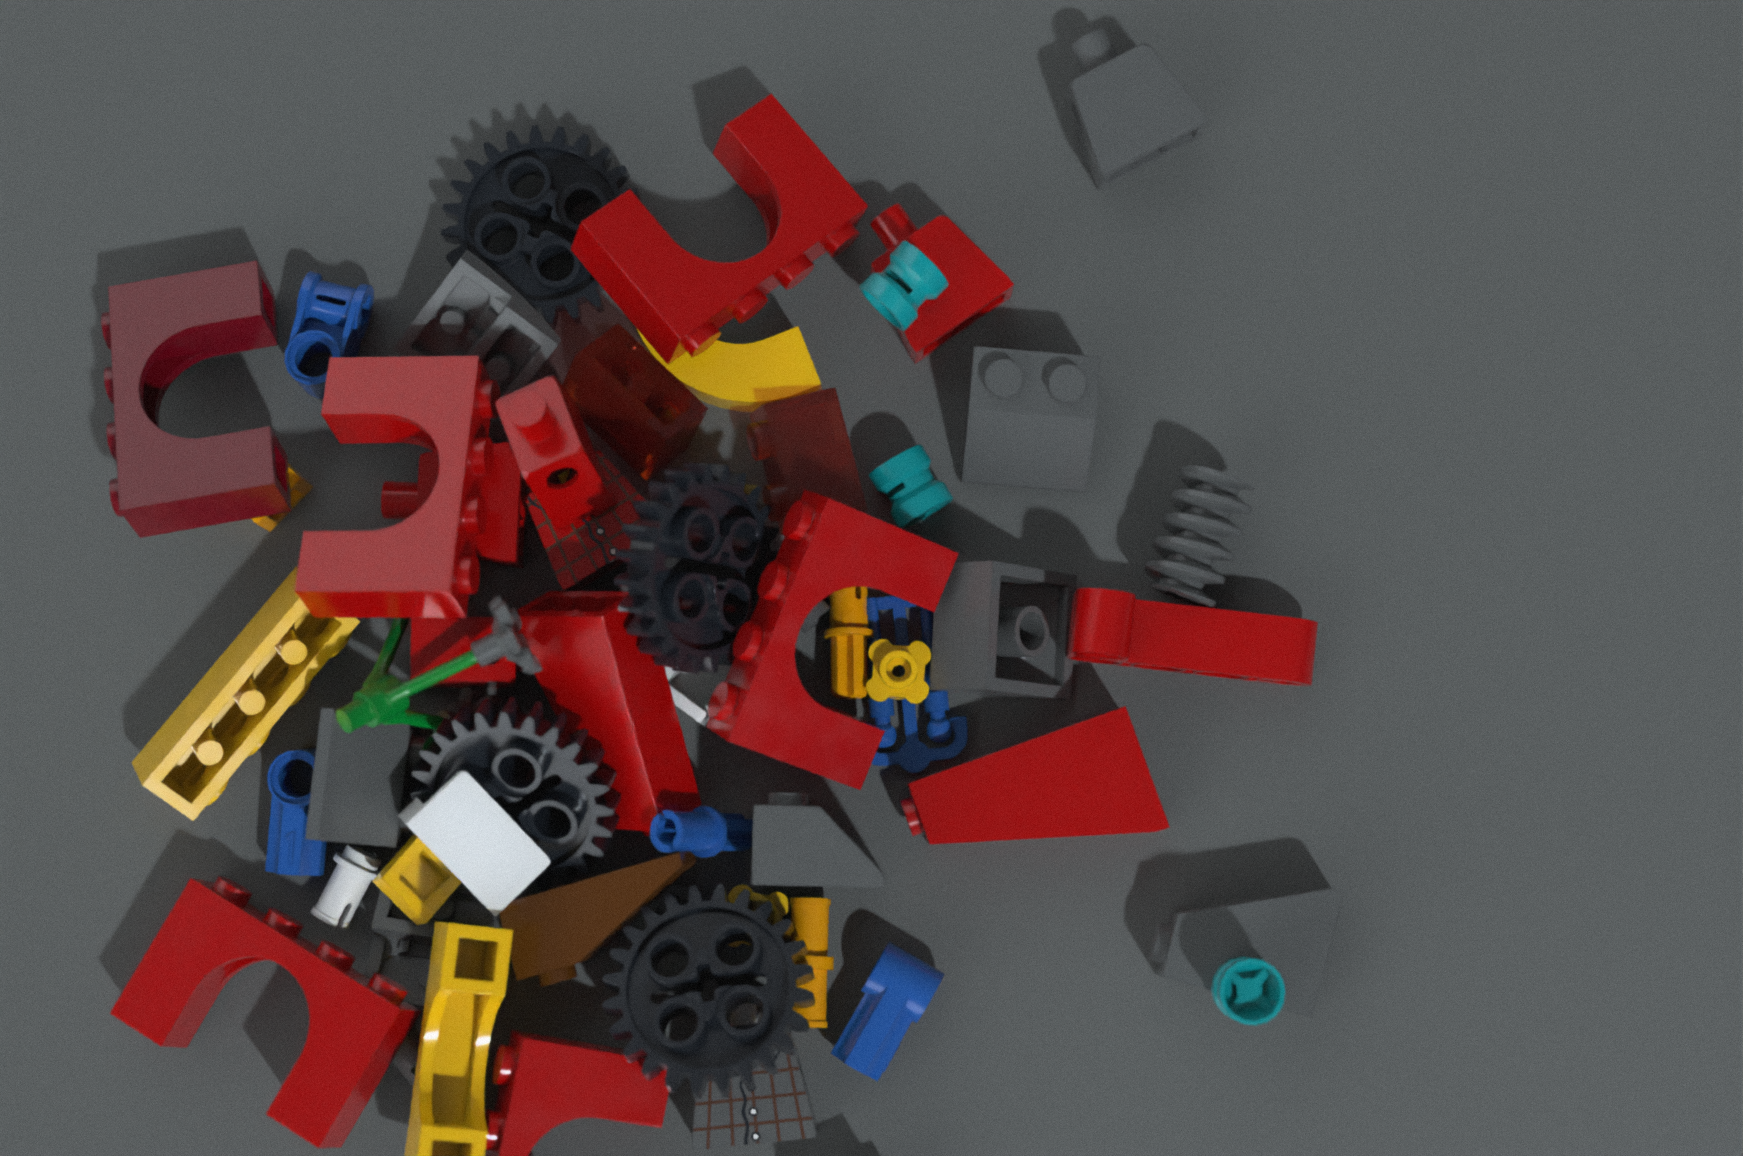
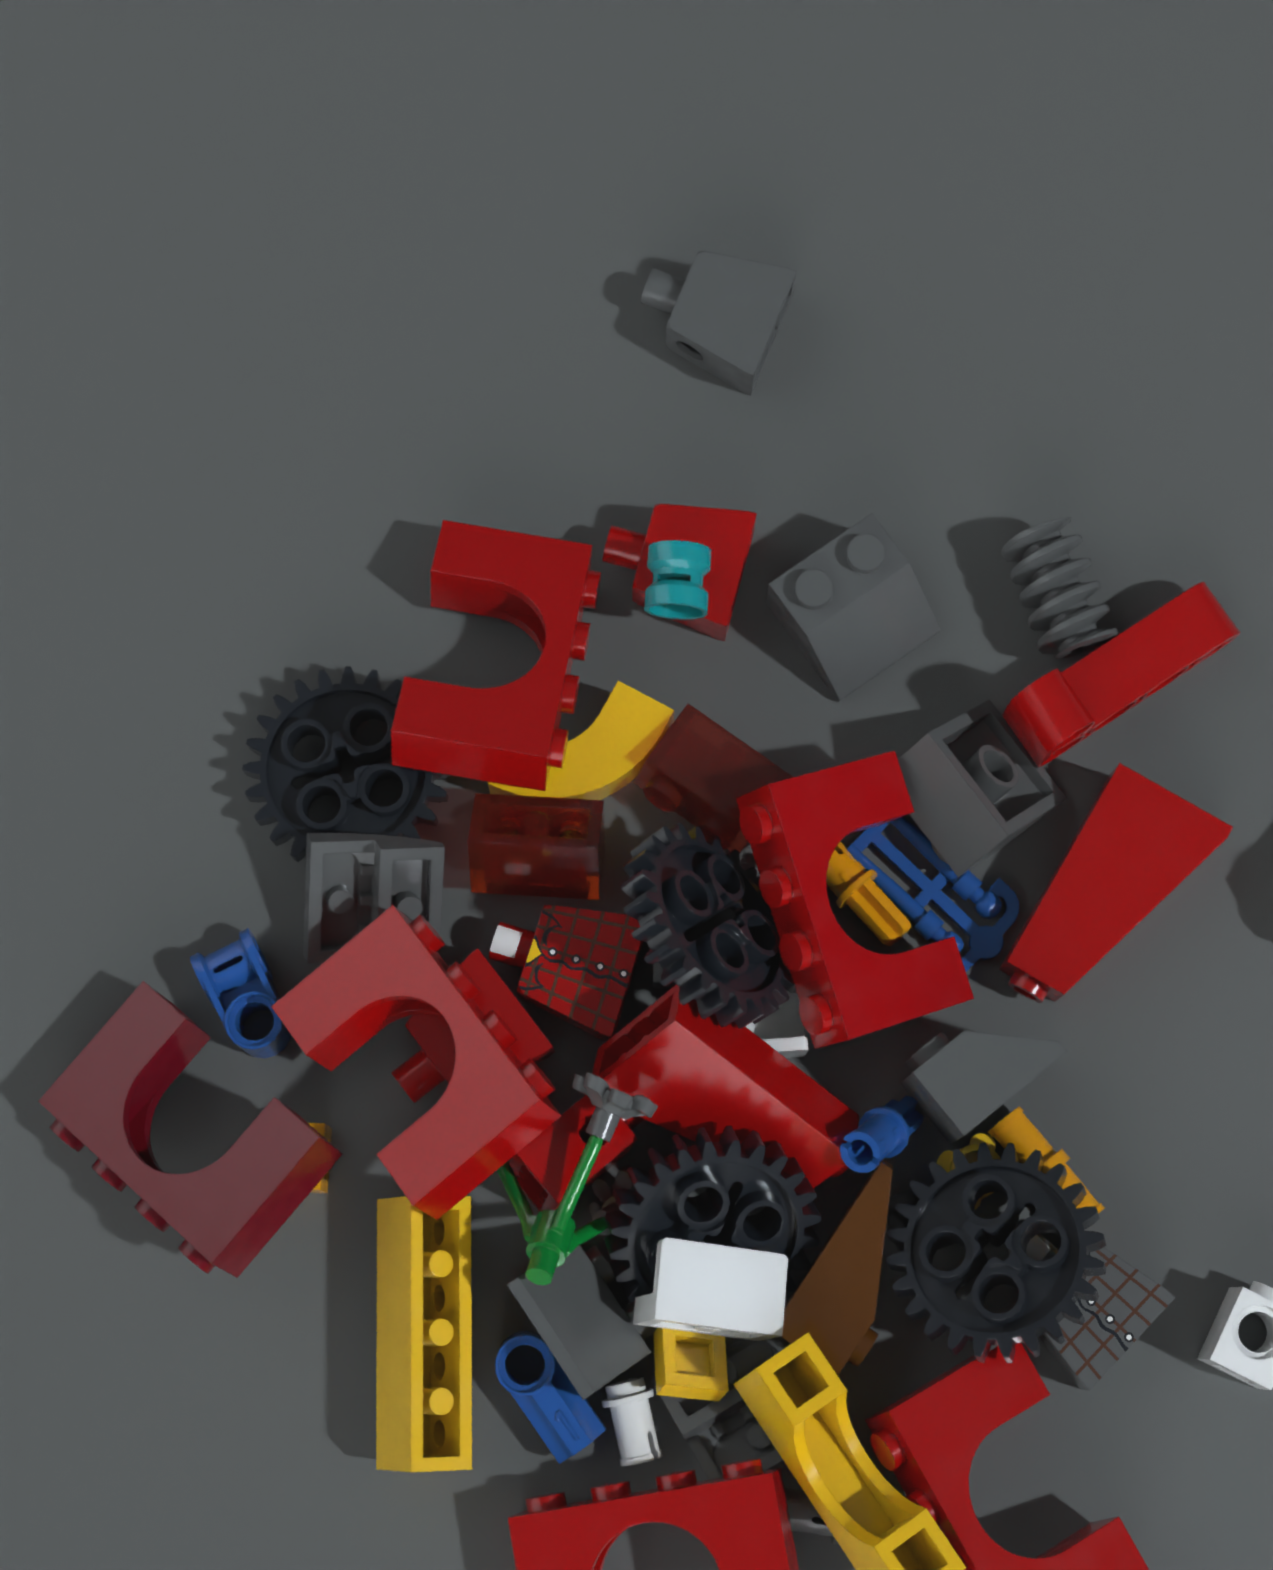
camera: 40 degrees left, 5 degrees down
(549, 436) = (508, 926): red torso -> none
(892, 1000) = (1135, 1137): blue piece -> none
(910, 486) = (806, 734): teal wheel -> none
(911, 684) = (919, 901): yellow plate -> none

